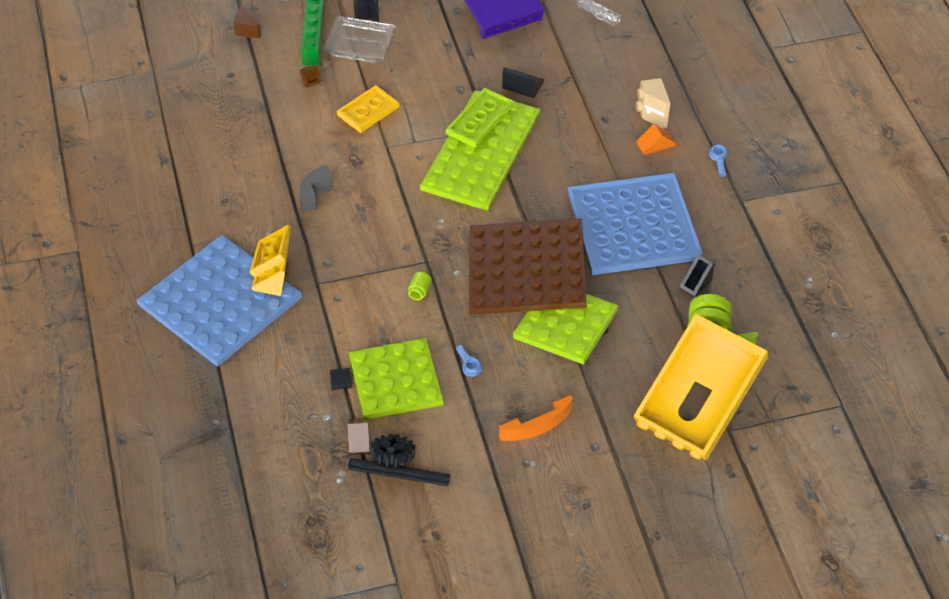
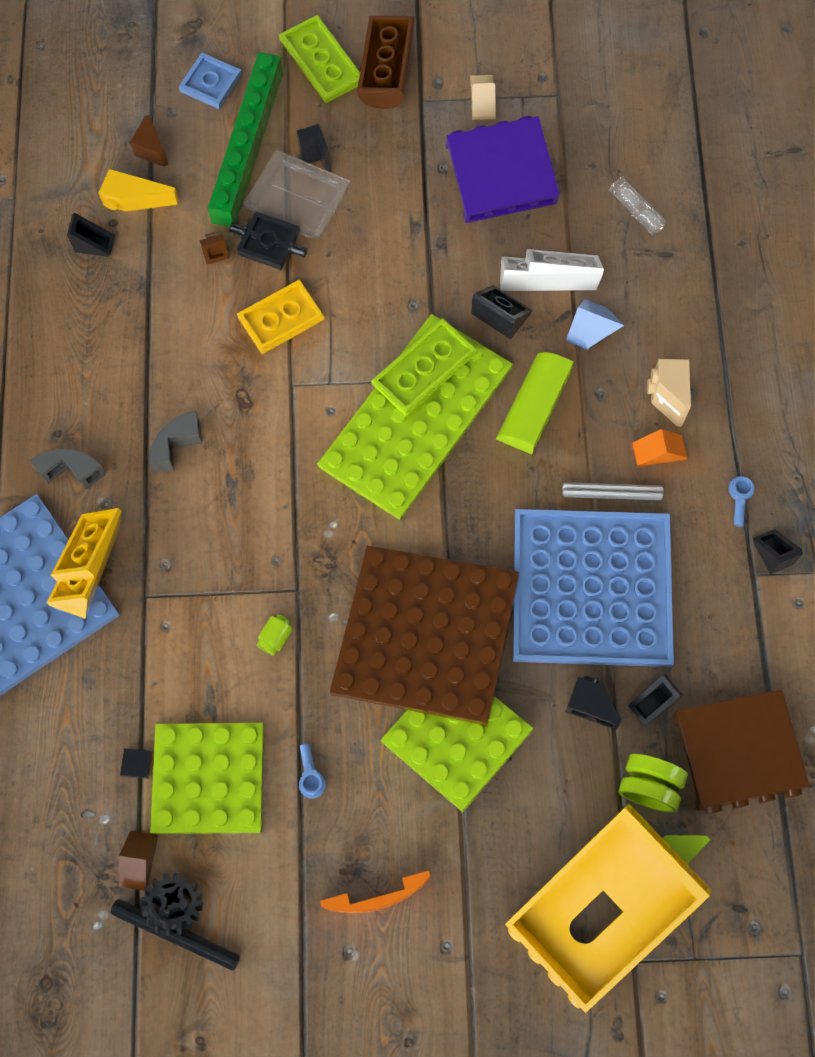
camera: 15 degrees right, 20 degrees up
(217, 82) = (88, 237): none -> black slope
(244, 53) = (134, 193): none -> yellow slope
(247, 211) = (55, 462): none -> dark grey brick
(347, 66) = (268, 240): none -> black plate
(551, 55) = (550, 272): none -> white slope
(562, 127) = (535, 401): none -> lime brick
(587, 80) = (592, 324): none -> slope
(629, 169) = (612, 491): none -> light grey axle
(656, 287) = (593, 703): none -> black slope
(754, 183) = (776, 550): none -> black slope
(765, 294) = (741, 751): none -> reddish brown panel

